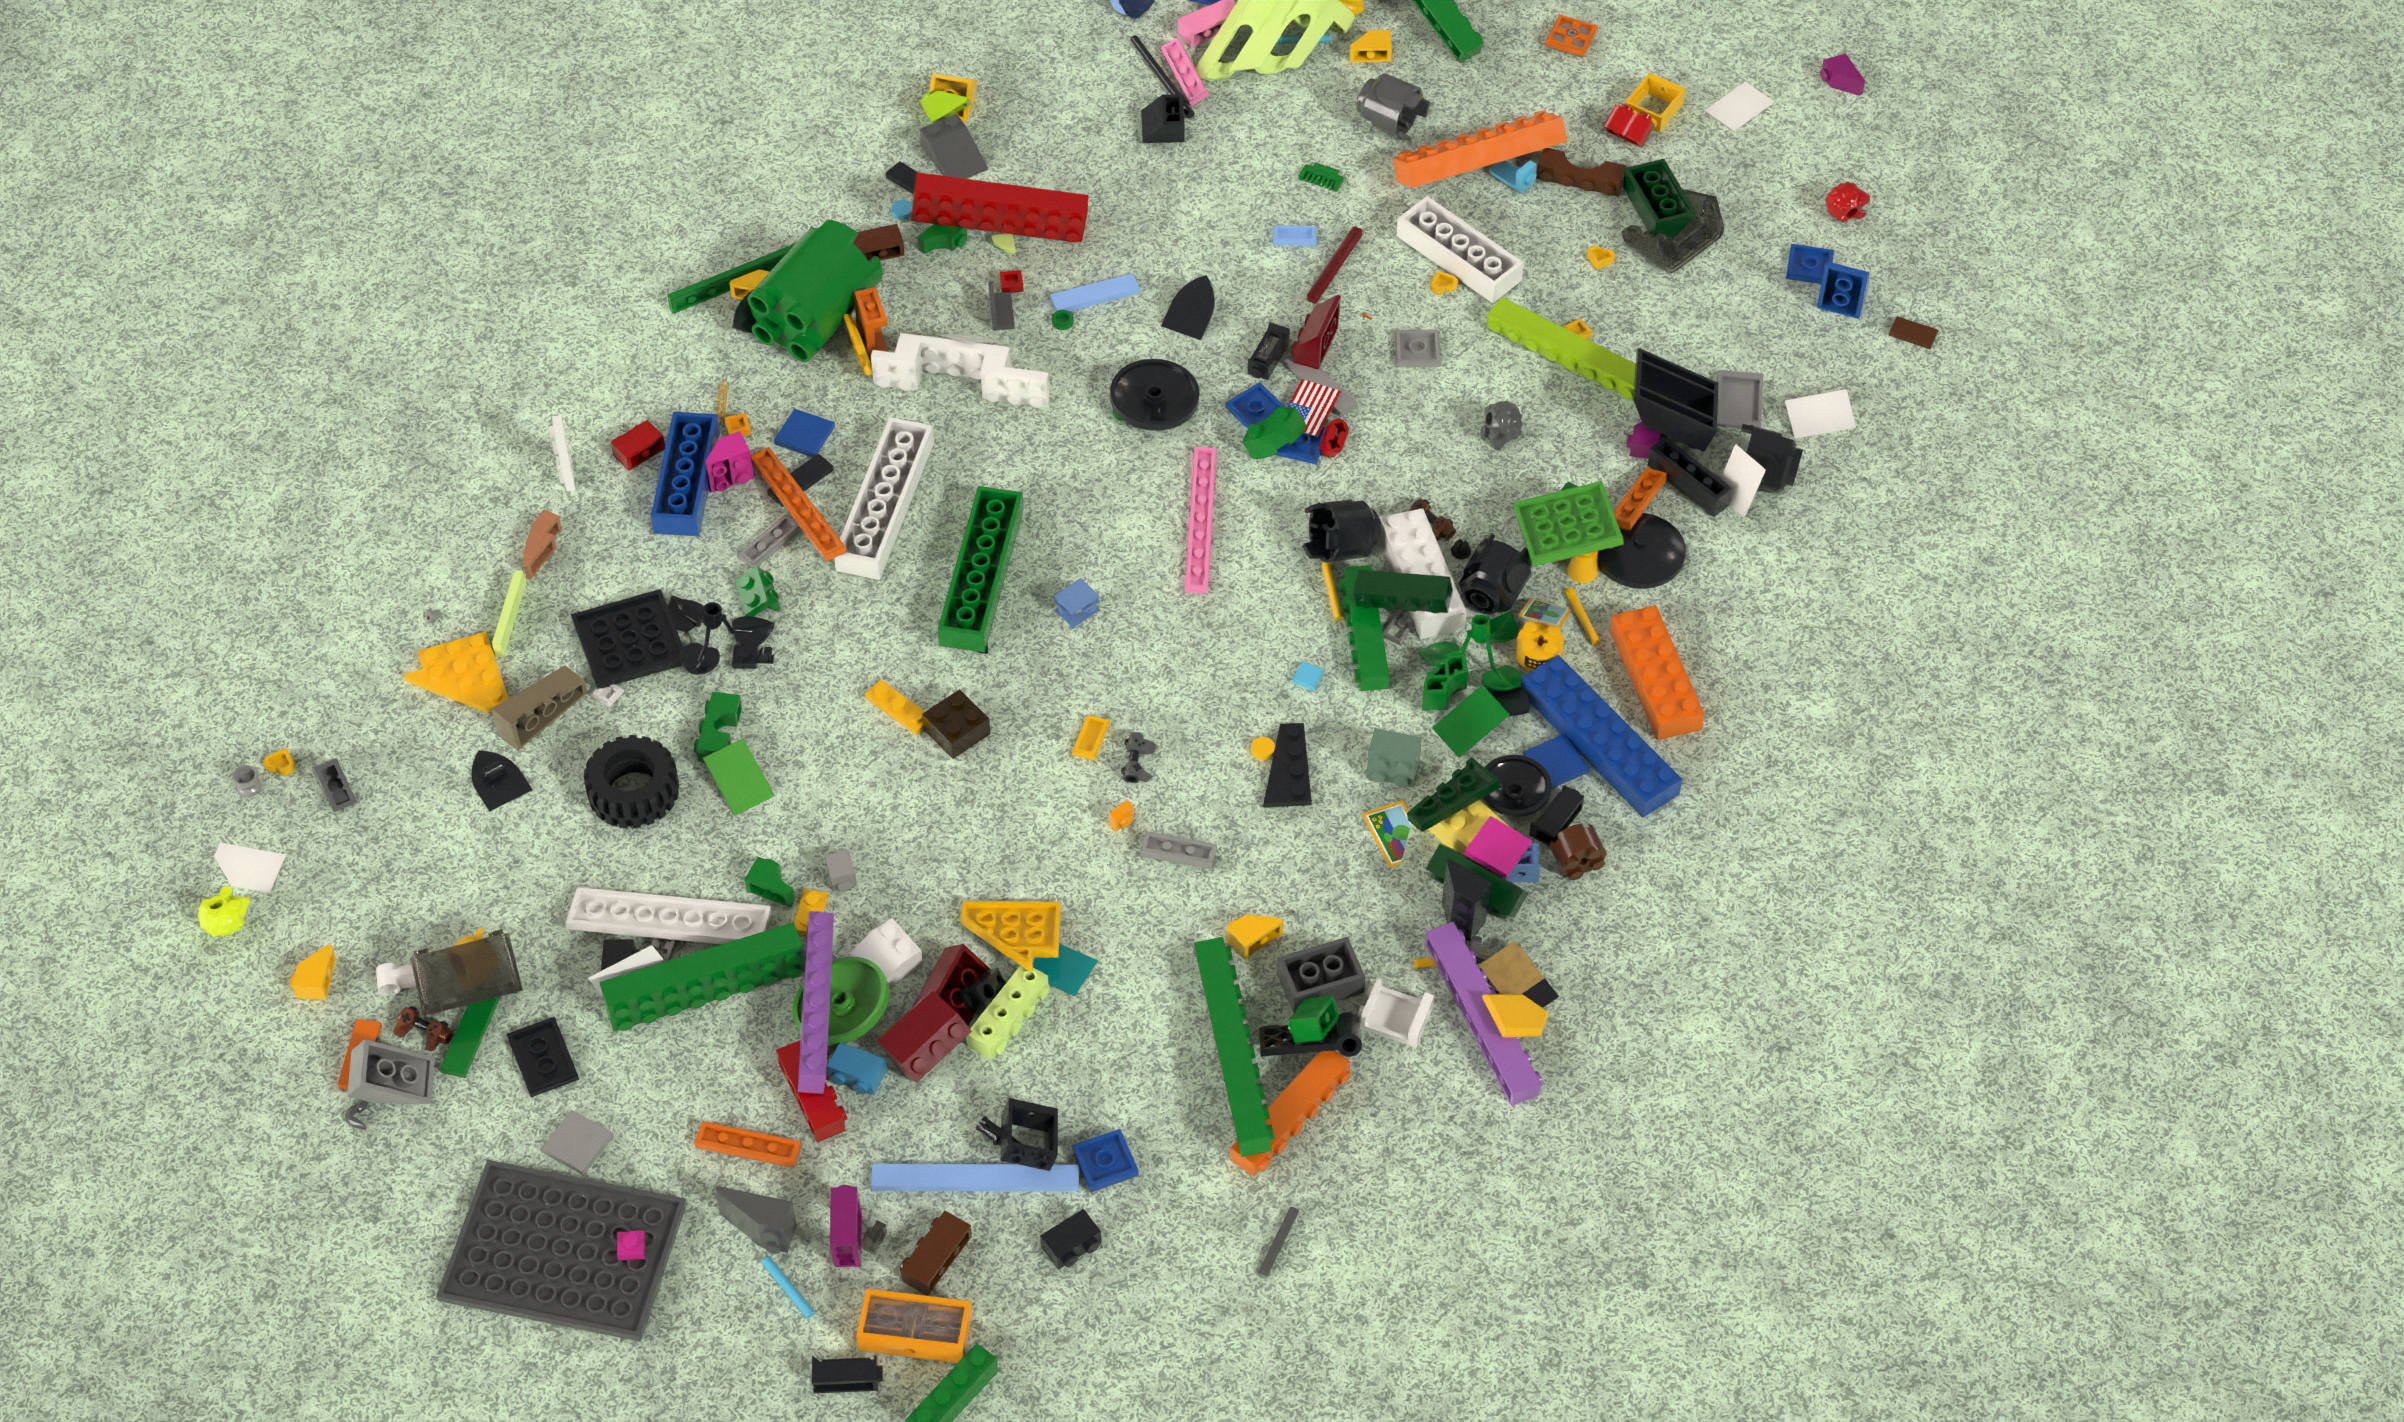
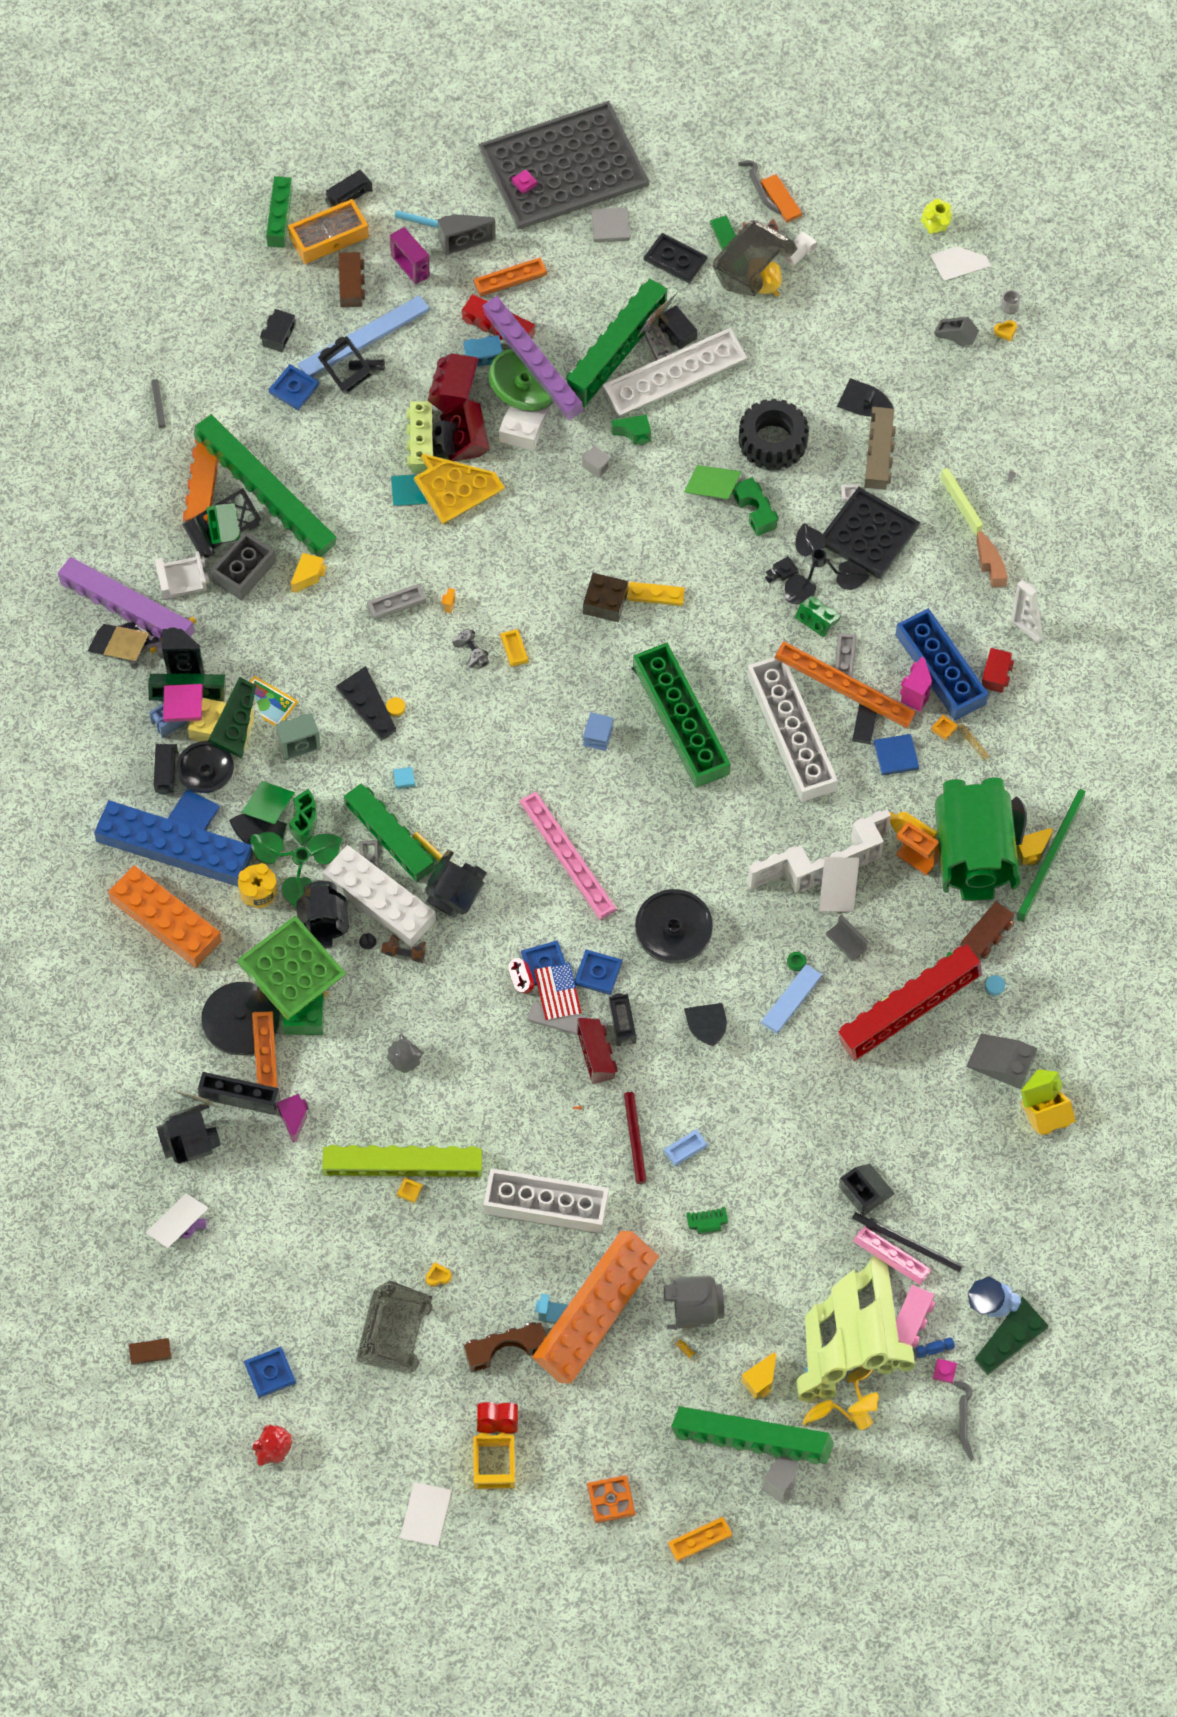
camera: 145 degrees right, 10 degrees up
(314, 974) = (849, 219): yellow slope -> none
(390, 1074) = (747, 189): light grey slope -> none
(463, 672) = (957, 449): yellow wing -> none
(810, 901) = (594, 430): yellow plate -> none
(874, 1237) = (393, 267): clear smoke plate -> none
(902, 176) = (1015, 1016): black tile -> none
(1011, 281) = (859, 967): red plate -> none
(1271, 434) = (562, 941): green brick -> none
(1403, 591) = (372, 848): dark green brick -> none
(1417, 348) = (518, 1099): light grey tile -> none
(1443, 282) = (542, 1169): yellow tile -> none
(1516, 1015) = (101, 607): yellow tile -> none
(1545, 612) = (268, 909): sticker -> none
(1578, 851) = (132, 742): reddish brown brick -> none
(1582, 616) = (240, 934): yellow bar -> none
(1658, 198) = (423, 1344): dark green slope -> none
(1675, 400) = (284, 1134): black slope -> none
(1739, 399) = (246, 1199): light grey piece -> none
(1842, 74) = (358, 1596): magenta slope -> none
(1843, 290) = (221, 1339): blue slope -> none

